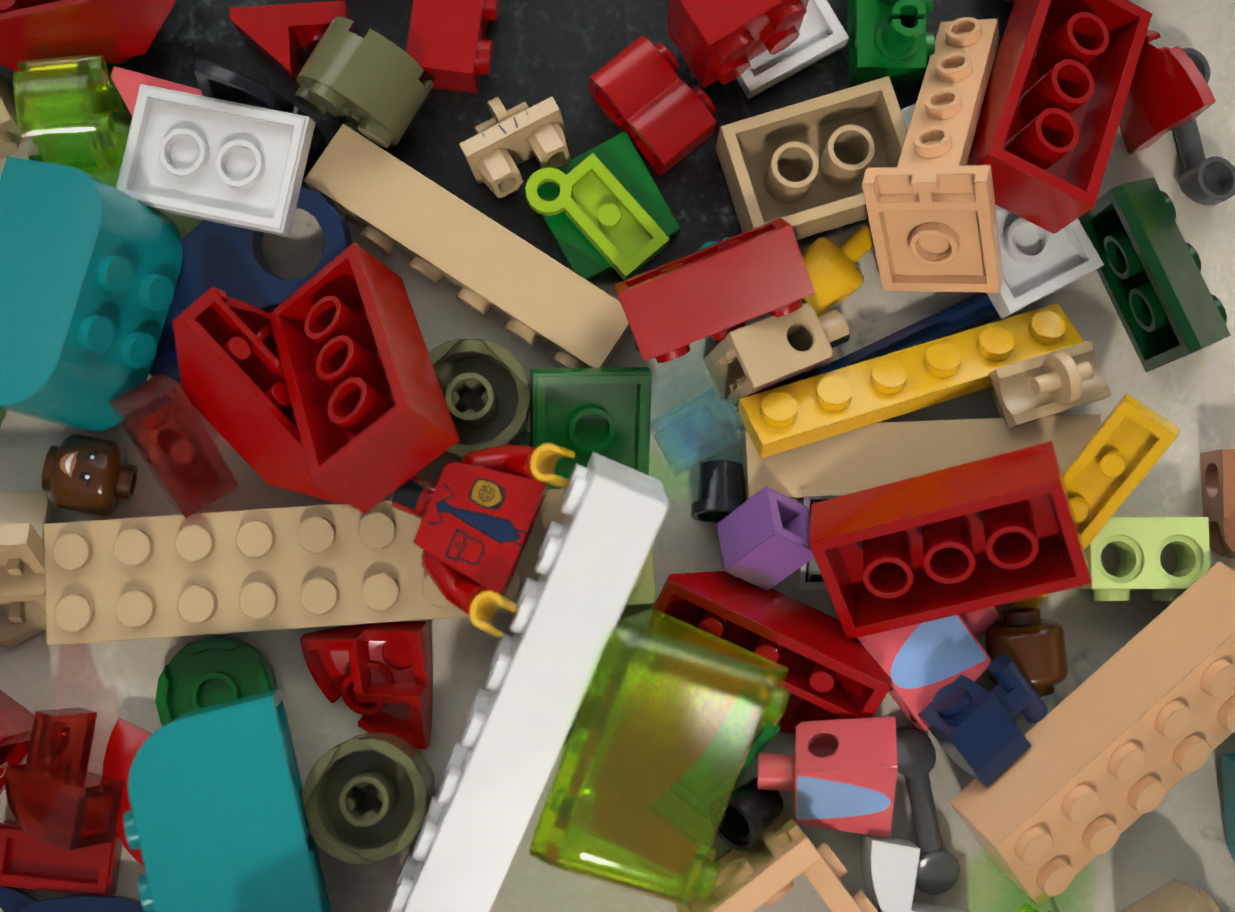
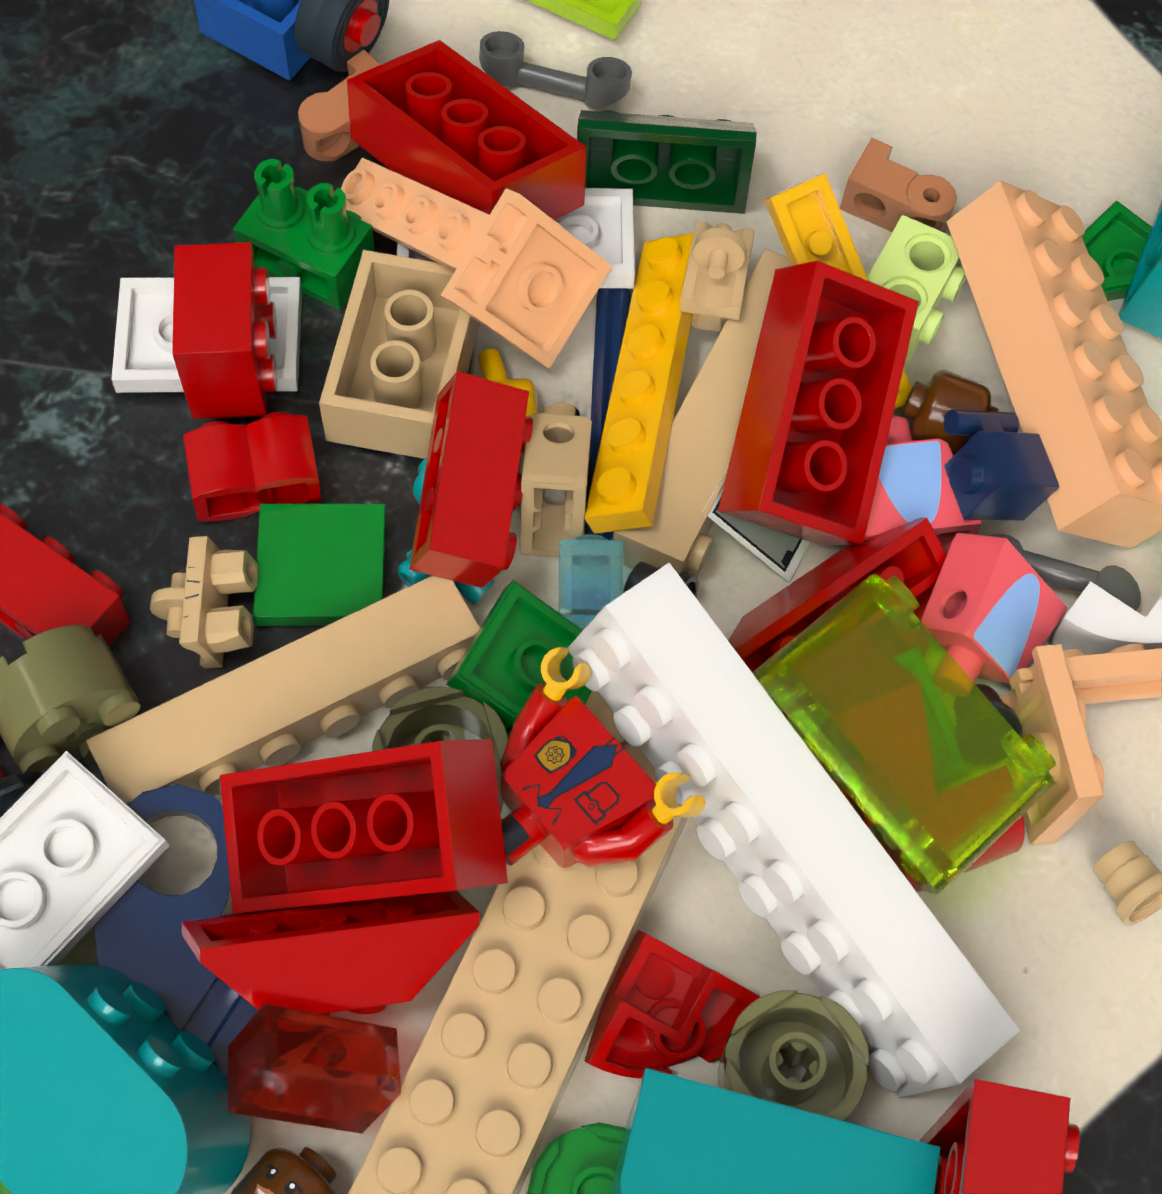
camera: 60 degrees left, 20 degrees down
(602, 213) = (330, 555): lime hinge -> none
(765, 539) = (731, 565): medium lavender brick -> none
(1162, 95) = (516, 58): red brick -> none

